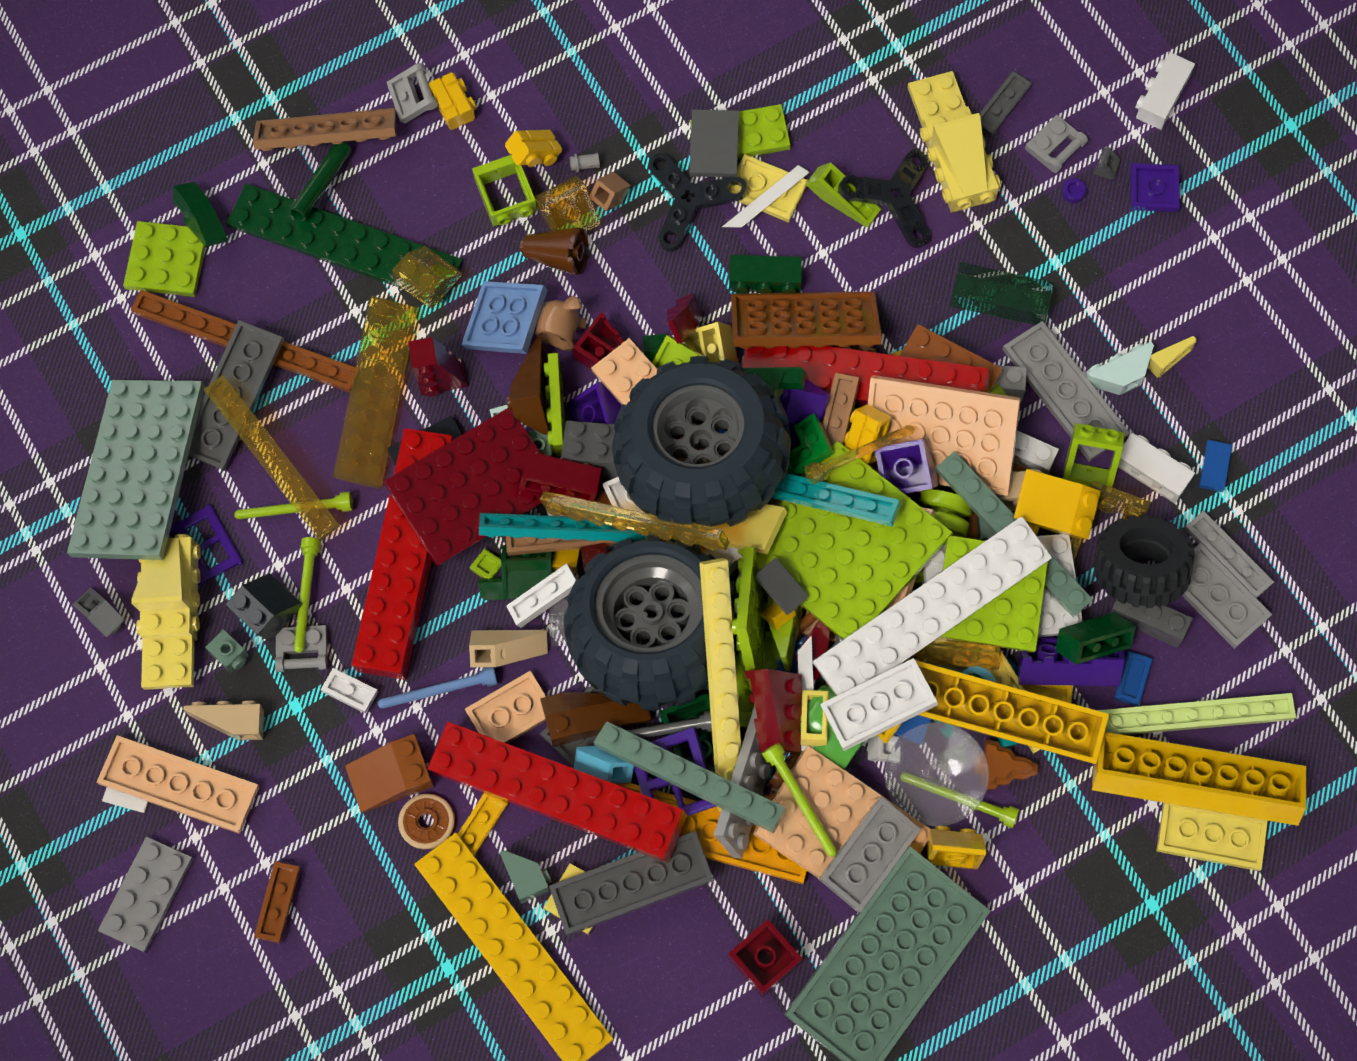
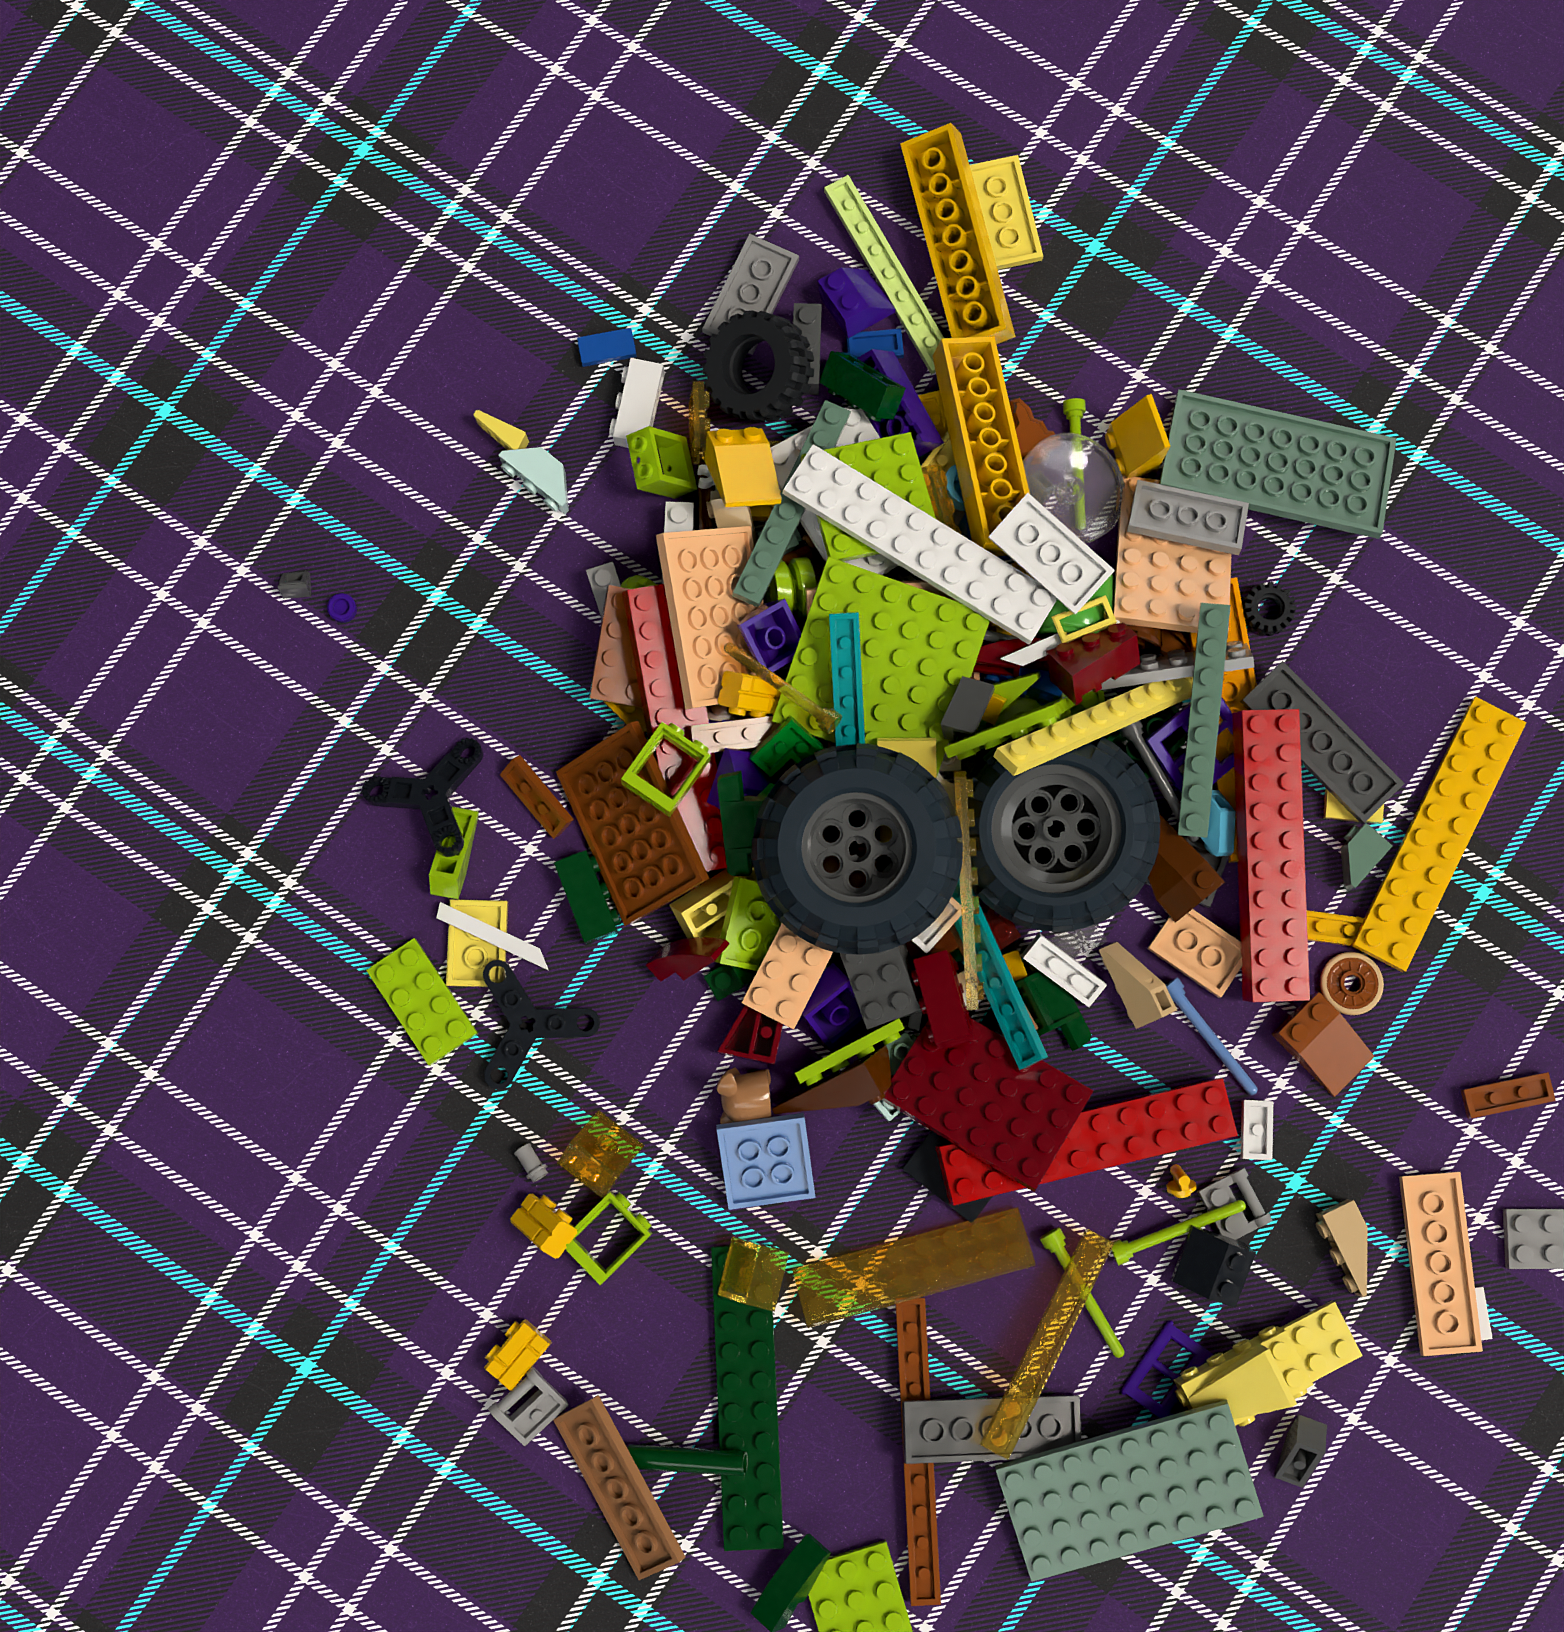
camera: 115 degrees left, 10 degrees up
(227, 651) = (1278, 1282): sand green brick -> none
(336, 613) = (1181, 1185): none -> yellow plate
(435, 367) = (862, 1205): dark red wedge -> none
(486, 565) = (1056, 1049): lime tile -> none
(557, 249) = (657, 1141): reddish brown cone -> none
(609, 191) = (560, 1114): medium nougat brick -> none
(714, 143) = (450, 1021): dark grey tile -> none
(765, 882) = (1273, 593): none -> black tyre
(765, 958) = (1331, 581): dark red brick -> none
(775, 757) = (1147, 639): lime piece -> none
(820, 319) = (649, 793): none -> lime window
(860, 269) = (536, 796): none -> dark orange plate
(954, 142) = (337, 757): light yellow wedge -> none
(1001, 294) = (499, 634): clear green slope -> none
(1003, 102) = (263, 726): dark grey tile -> none
(1050, 139) = (287, 656): light grey plate -> none
(1061, 384) = (584, 529): light grey plate -> none
(1154, 187) = (305, 522): dark purple plate -> none
(1164, 90) = (178, 554): white brick -> none
(1179, 674) = (854, 299): none -> dark purple slope
(1243, 568) = (701, 298): light grey plate -> none

